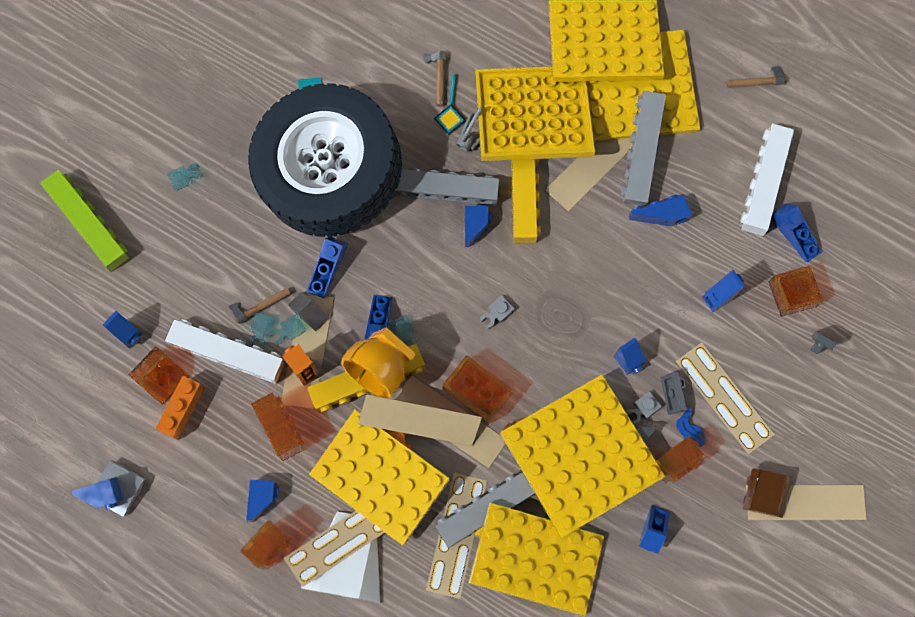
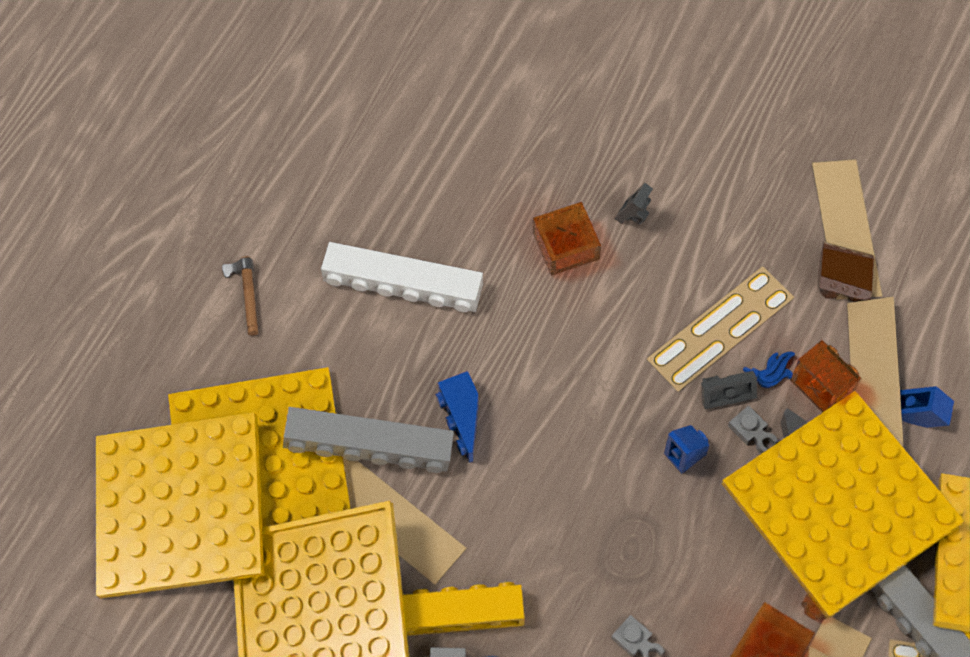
camera: 90 degrees left, 10 degrees down
(689, 503) = (876, 359): none -> tan sticker
(723, 291) = (581, 325): blue slope -> none
(796, 231) = (474, 240): blue slope -> none

